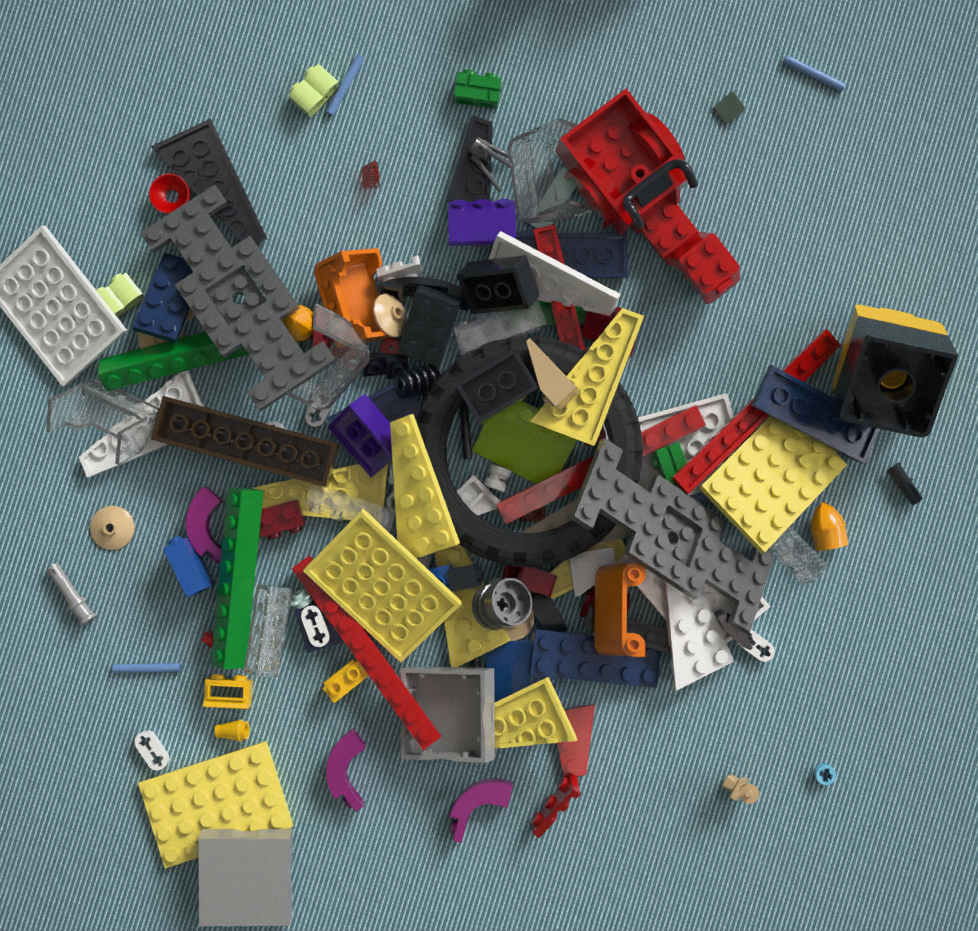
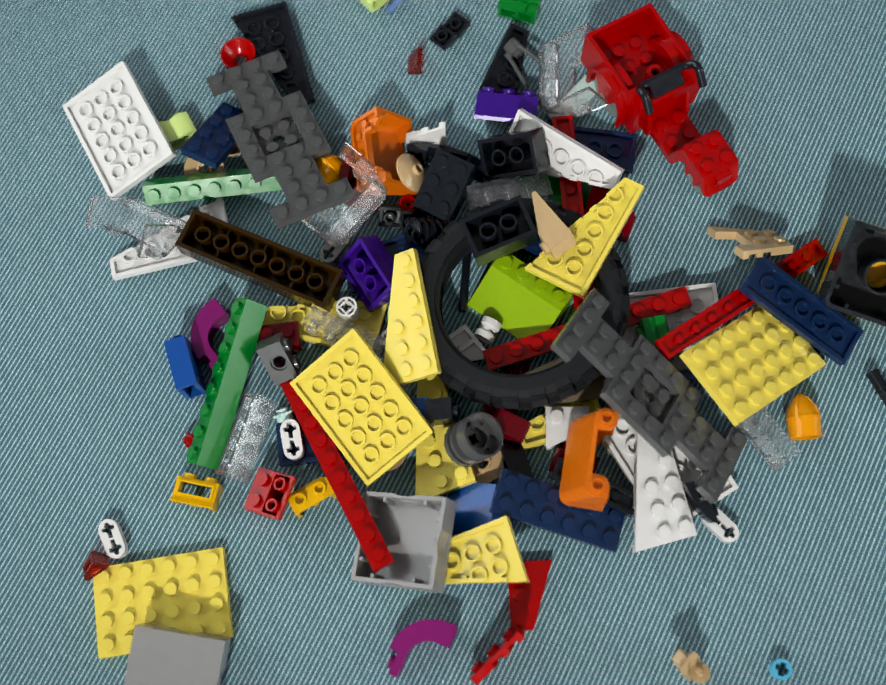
camera: 15 degrees right, 15 degrees down
(76, 603) = (75, 389): light grey pin -> none
(123, 527) = (131, 334): tan dish -> none
(140, 780) = (95, 564): none -> clear red slope
(143, 668) = (124, 459): medium blue bar -> none
(234, 730) = (195, 531): yellow cone -> none
(285, 544) = (278, 370): none -> dark grey brick
(304, 685) = (269, 493): none -> red slope
(337, 765) = (287, 582): magenta arch -> none
(352, 480) = (351, 312): none -> white wheel
(404, 131) = (450, 32): none -> black slope
(729, 108) = (741, 45): sand green slope -> none
(770, 344) = (752, 241): none -> tan wing
(814, 73) = (820, 27): medium blue bar -> none

